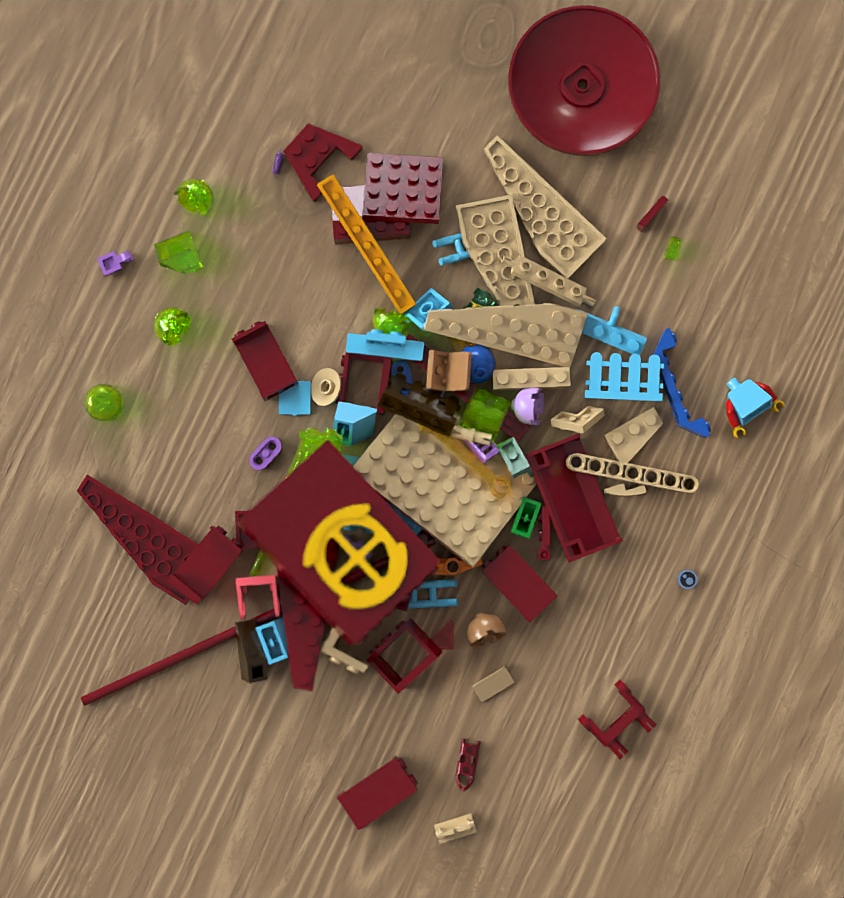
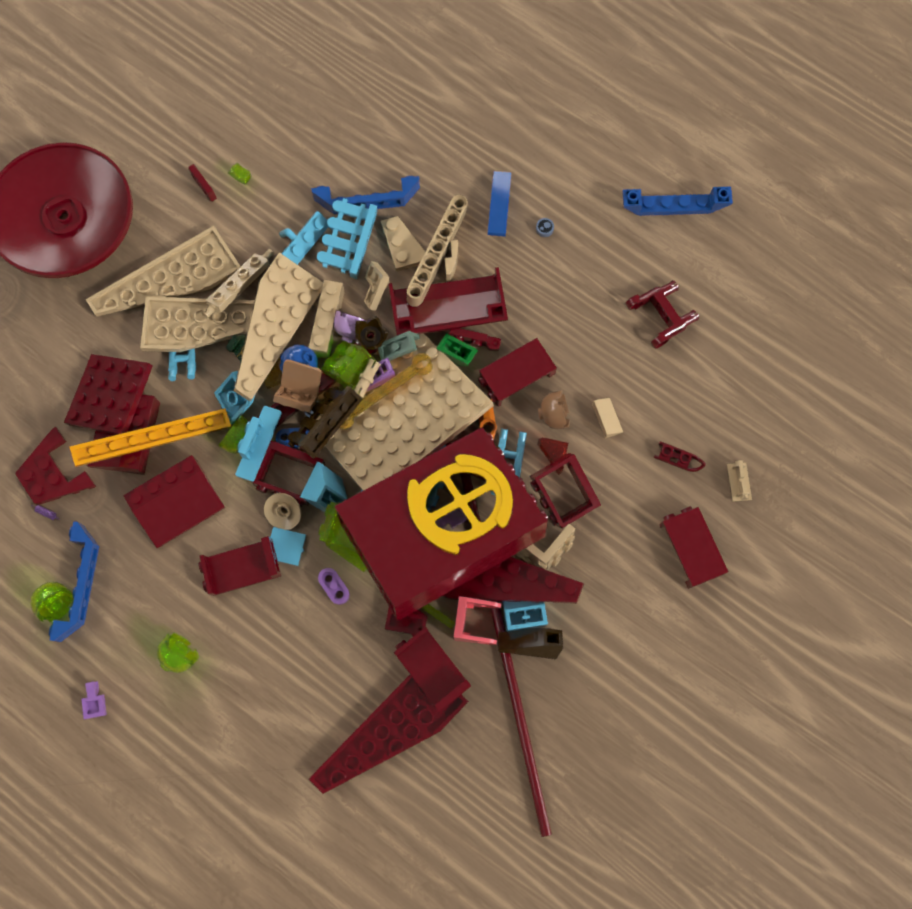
camera: 80 degrees left, 10 degrees down
(103, 402) = (237, 745): clear neon green cylinder -> none
(179, 253) = (105, 629): clear neon green slope -> none
(261, 205) = (81, 593): none -> blue slope
(313, 282) = (174, 501): none -> dark red slope
(518, 438) = (373, 326): none -> dark brown piece
(701, 526) = (499, 203): none -> blue slope
(747, 402) = (397, 141): medium azure torso -> none
(747, 713) = (677, 204): none -> blue slope

